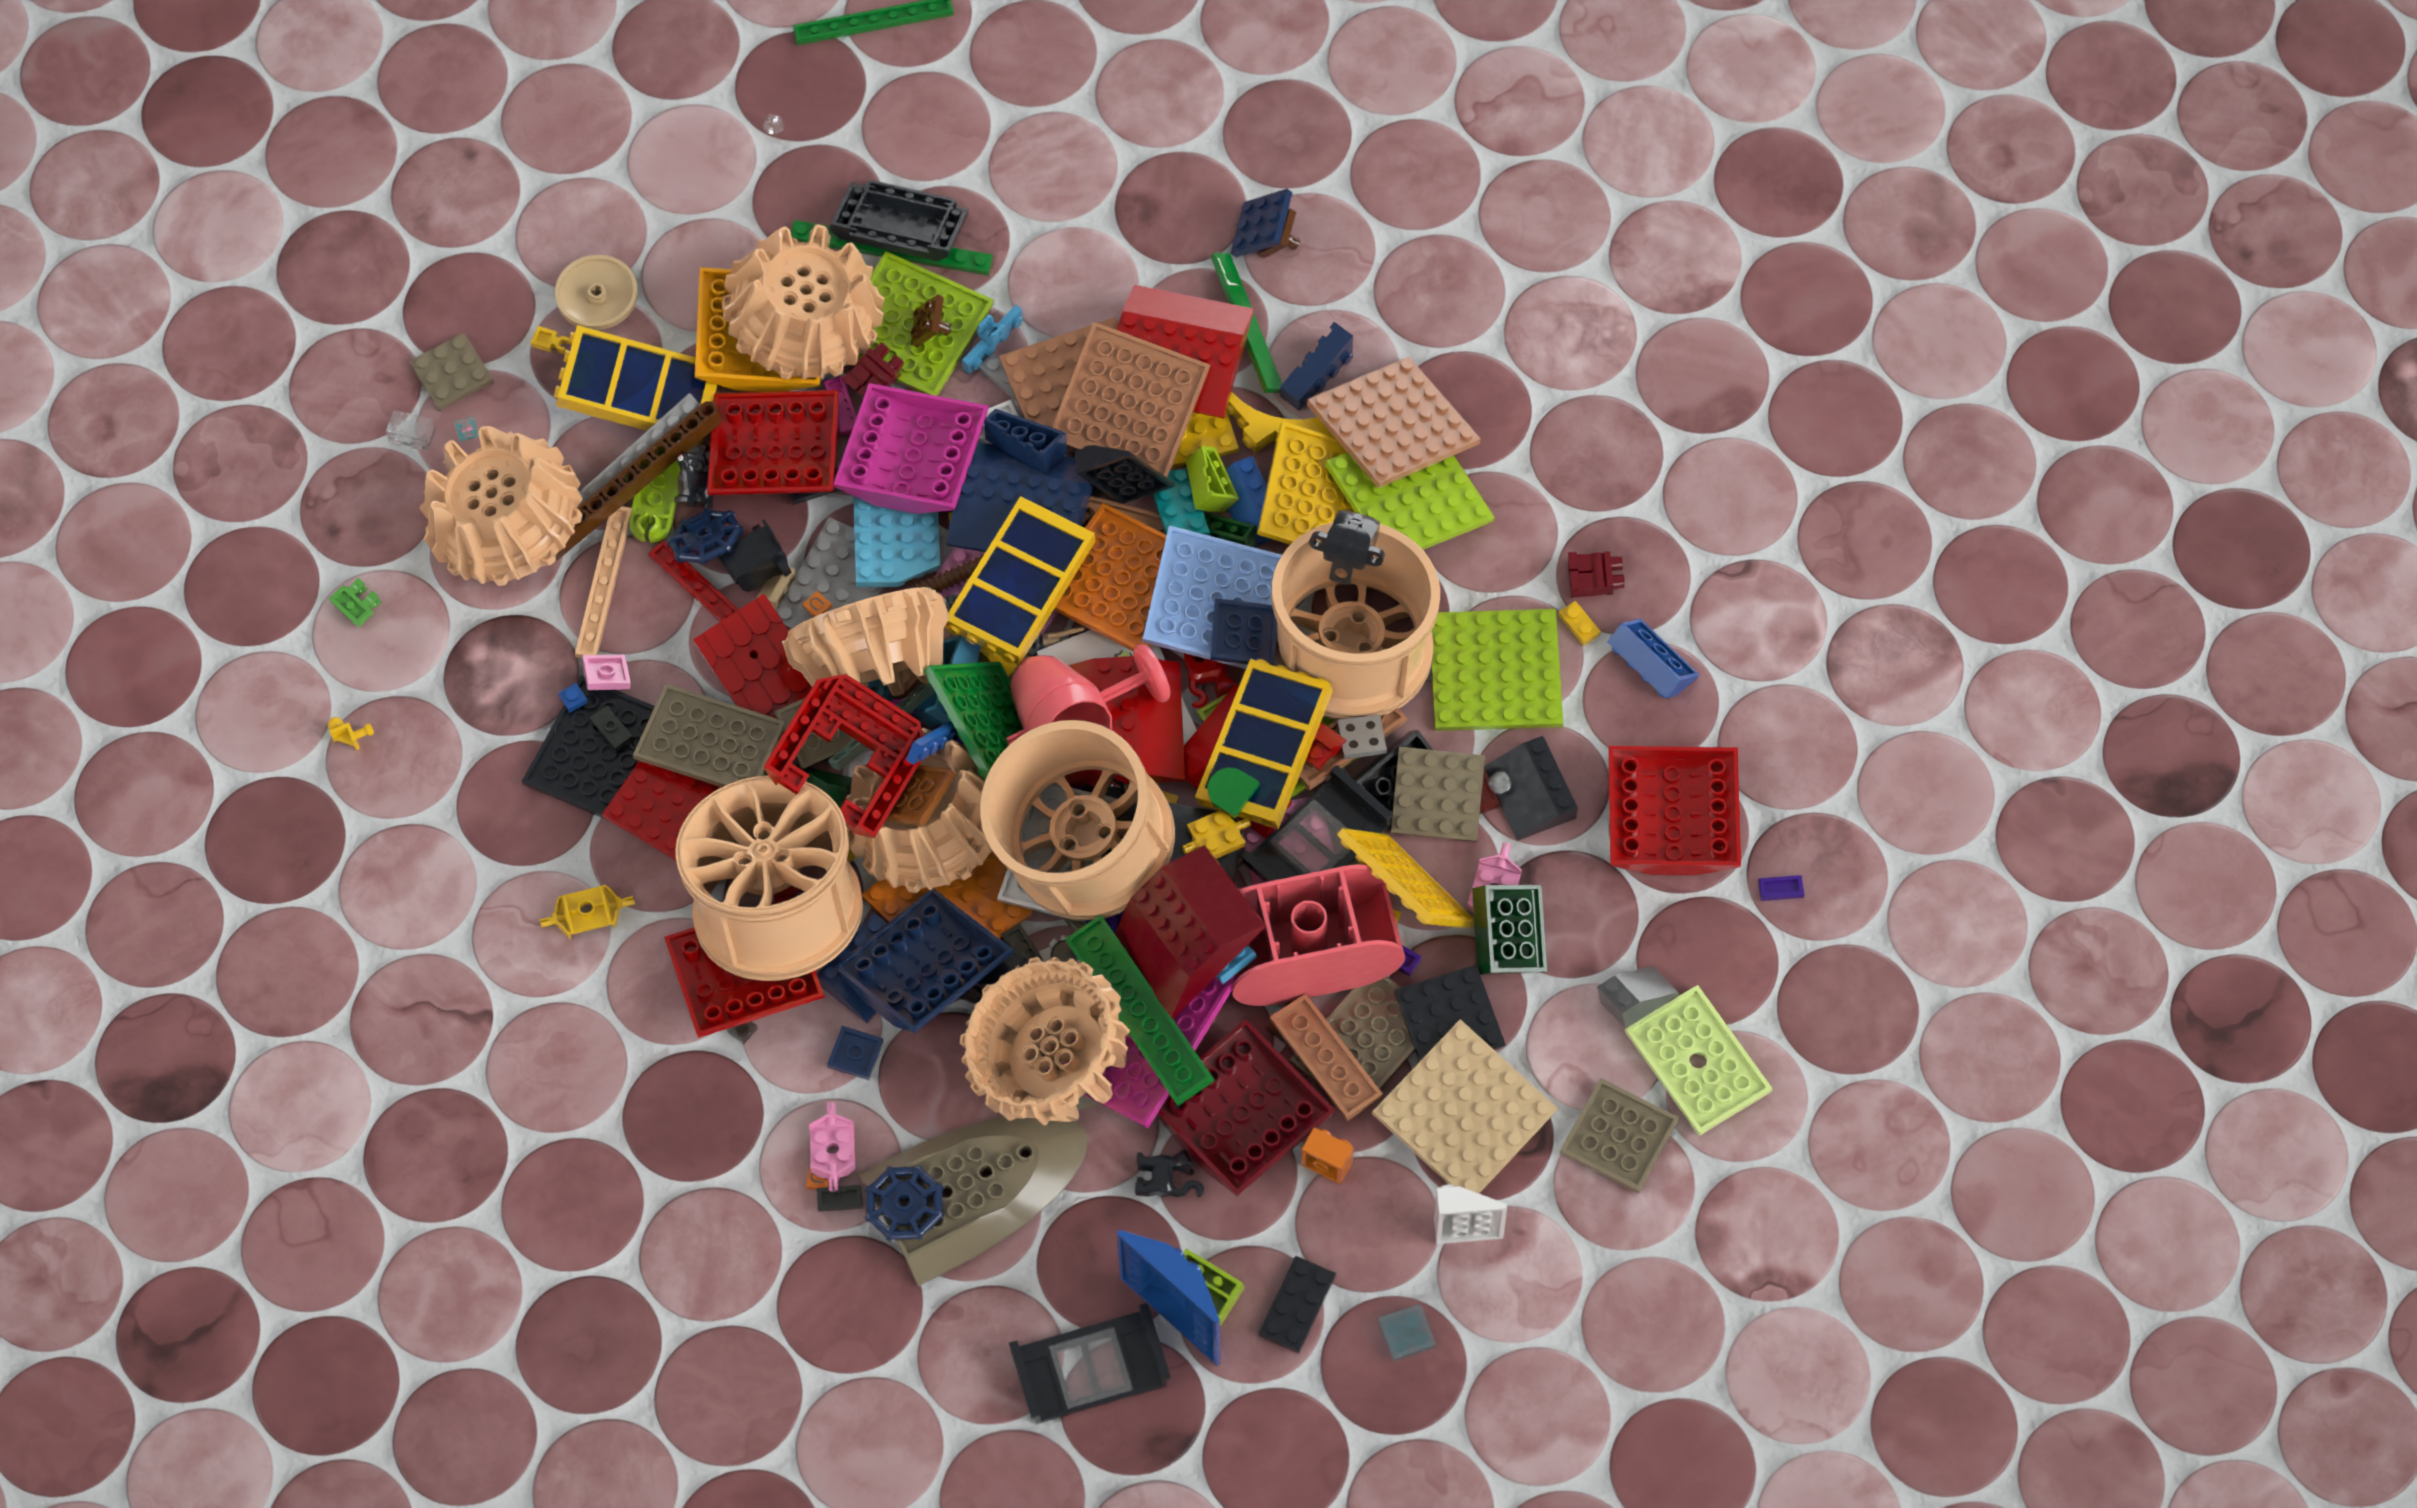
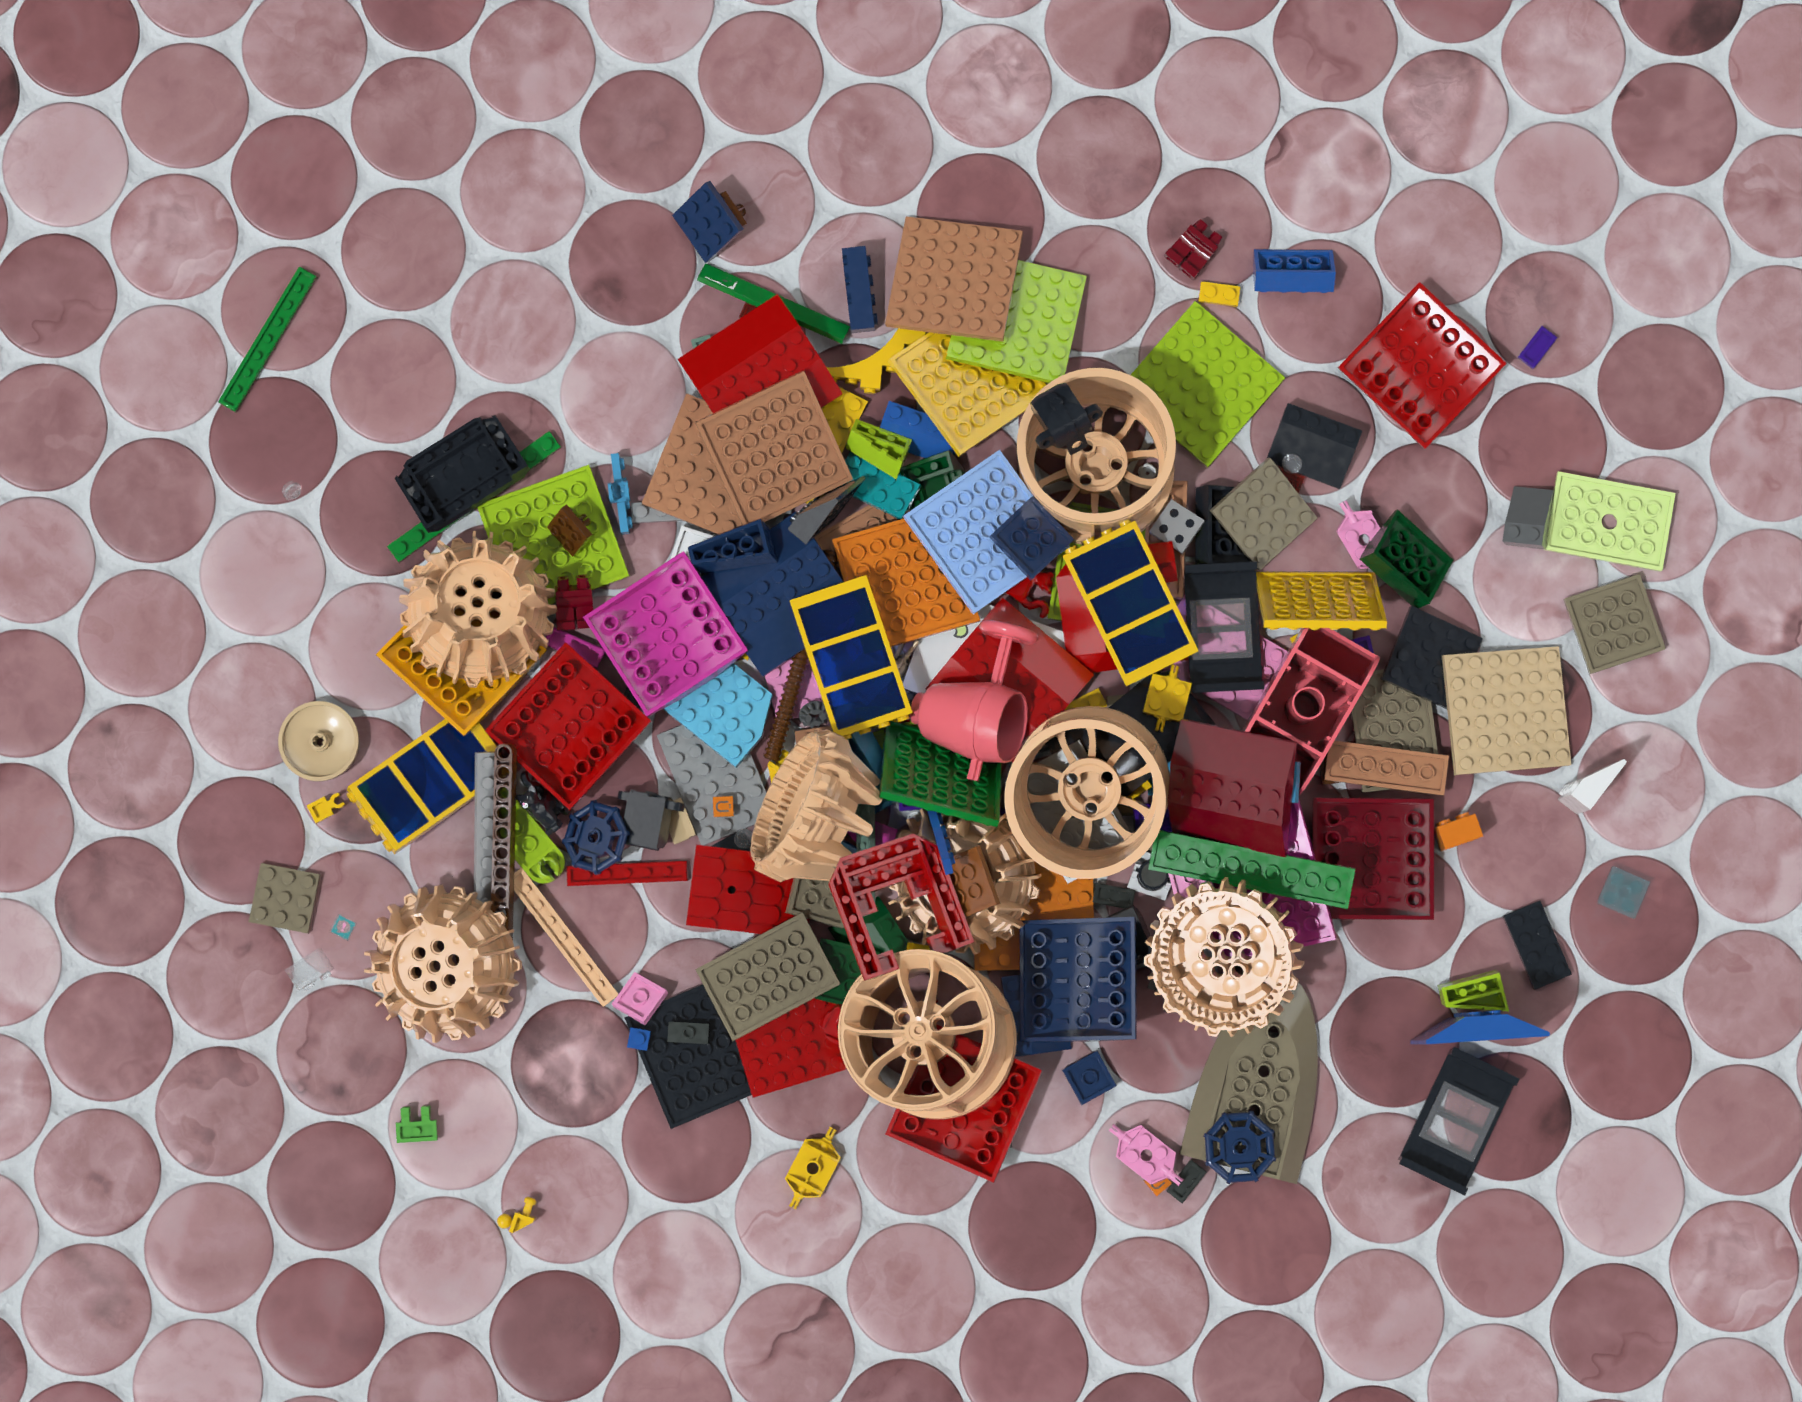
camera: 50 degrees left, 20 degrees up
(1162, 1175) = (1368, 953): black animal -> none
(1231, 790) = (1147, 659): green tile -> none

